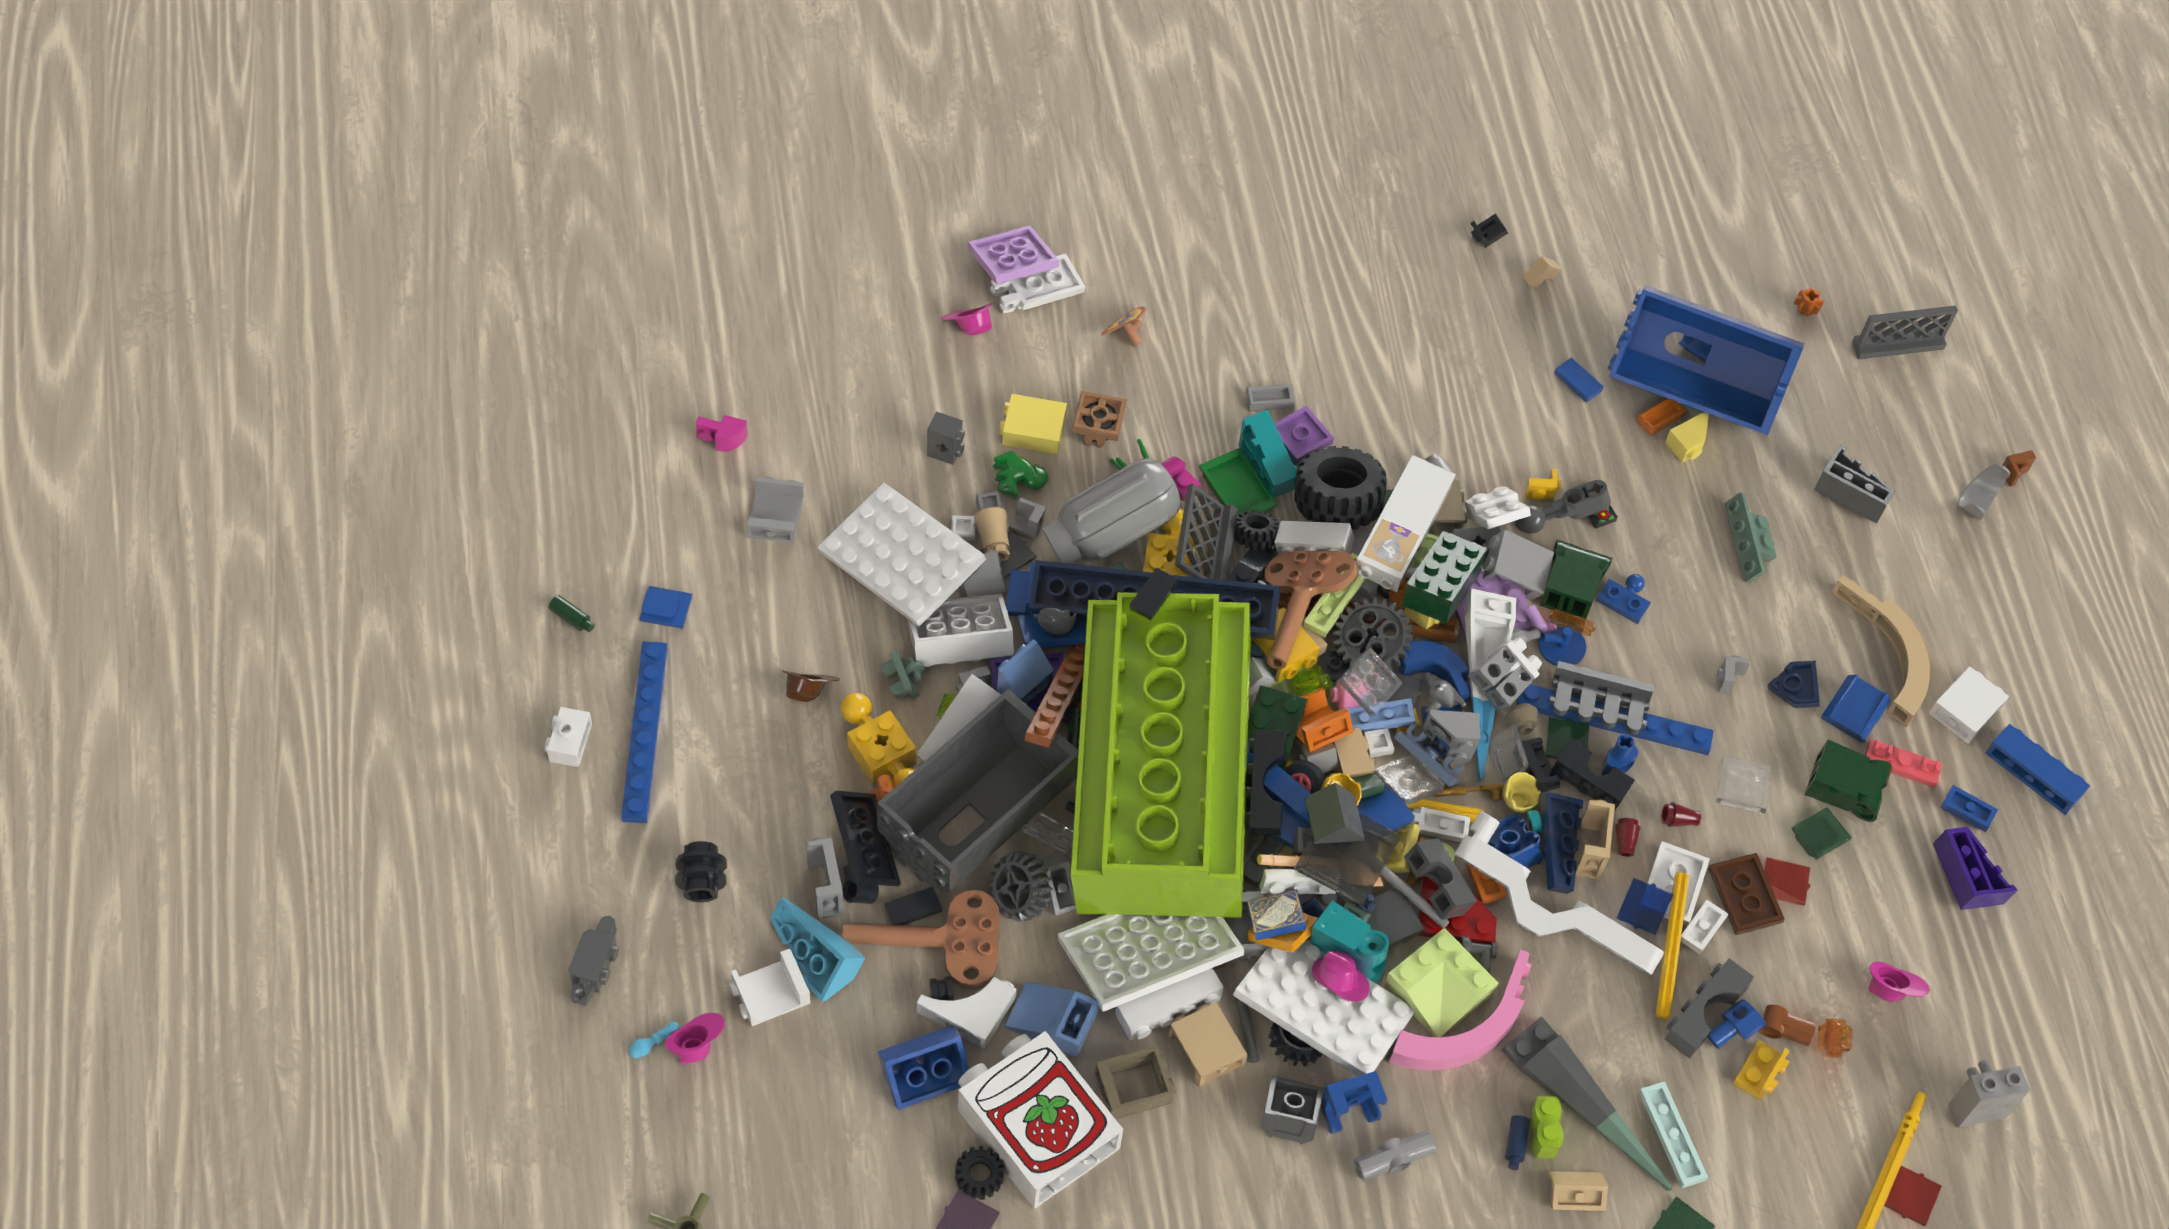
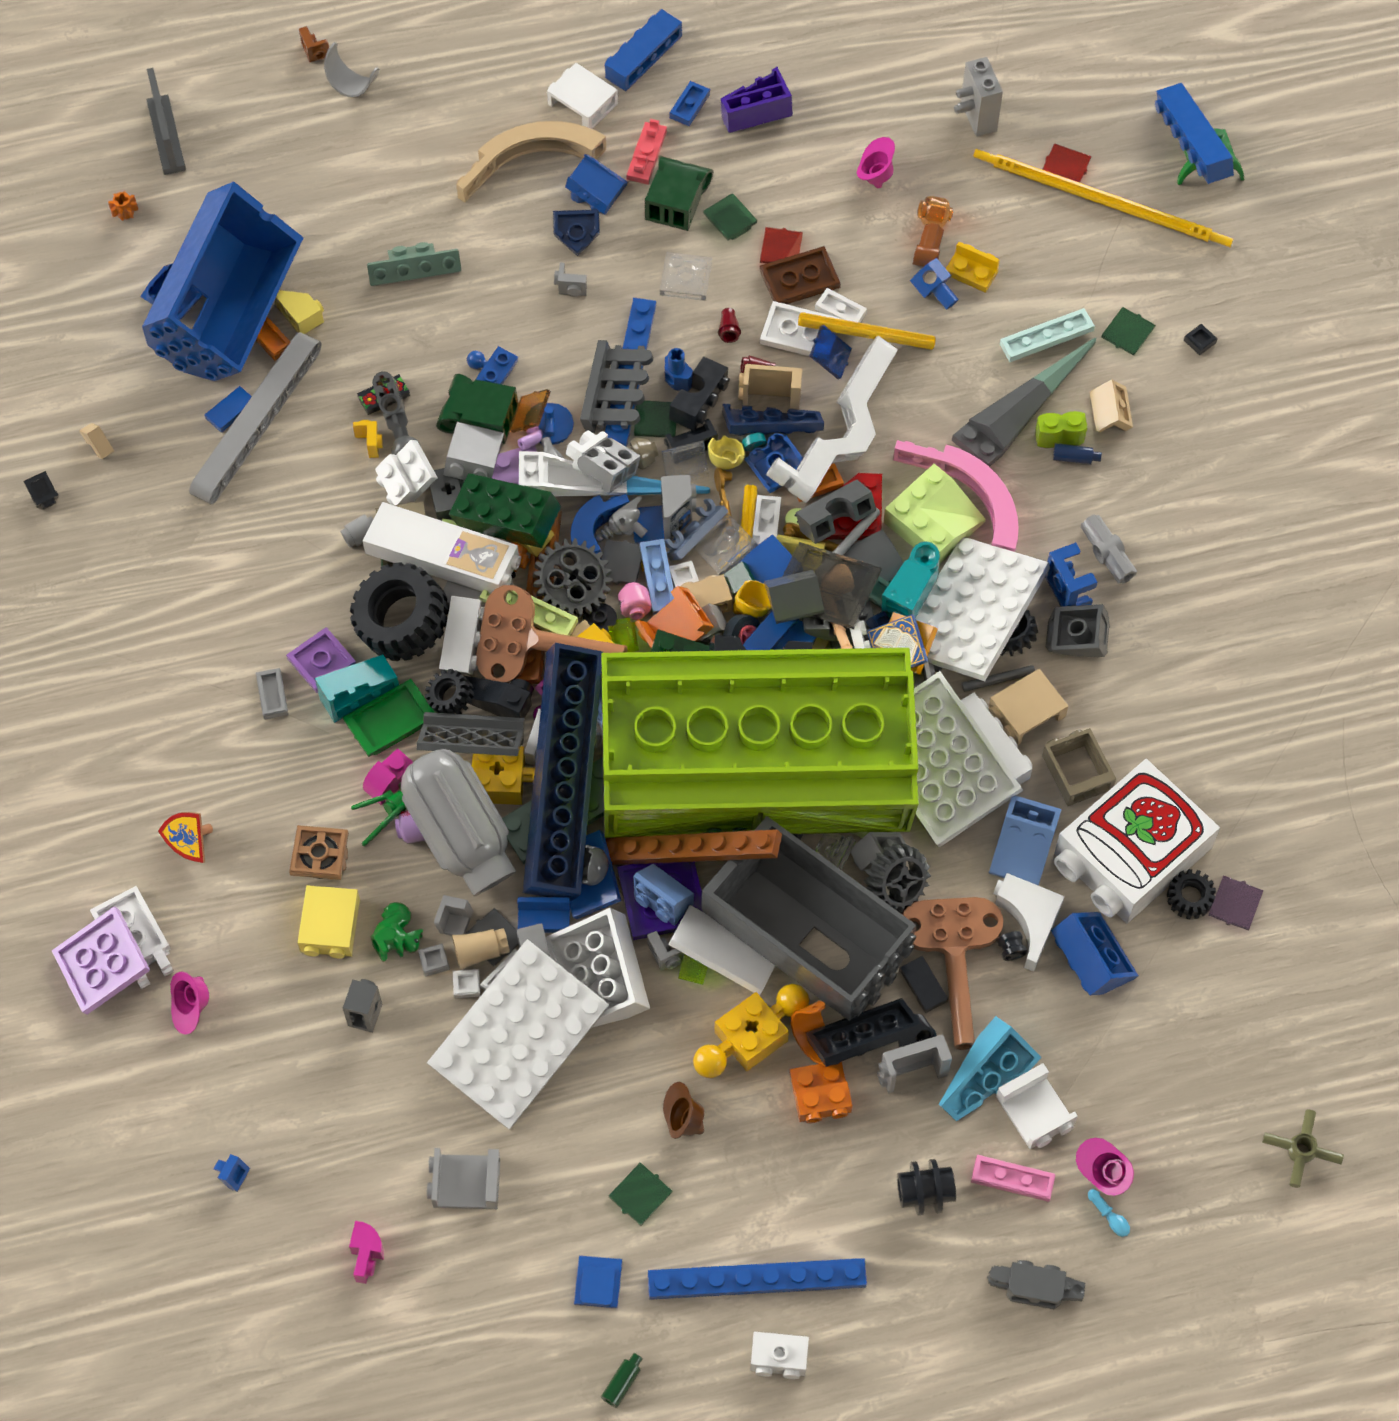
camera: 90 degrees left, 5 degrees up
(704, 960) = (1013, 1178): none -> bright pink tile
(741, 647) = (640, 1194): none -> clear green piece
(808, 341) = (232, 1172): none -> blue tile
(812, 802) = (820, 1092): none -> orange plate
(898, 666) = (673, 1018): sand green hips -> none
(1153, 594) = (607, 736): black tile -> none
(1339, 974) = (948, 593): dark pink piece -> none
(1370, 682) = (630, 575): clear plate -> none
(1486, 951) = (891, 482): dark grey piece -> none
(1568, 397) = (255, 418): none -> light grey beam
(1726, 986) = (944, 320): dark grey arch -> none
(1854, 487) = (349, 175): dark grey wedge -> none

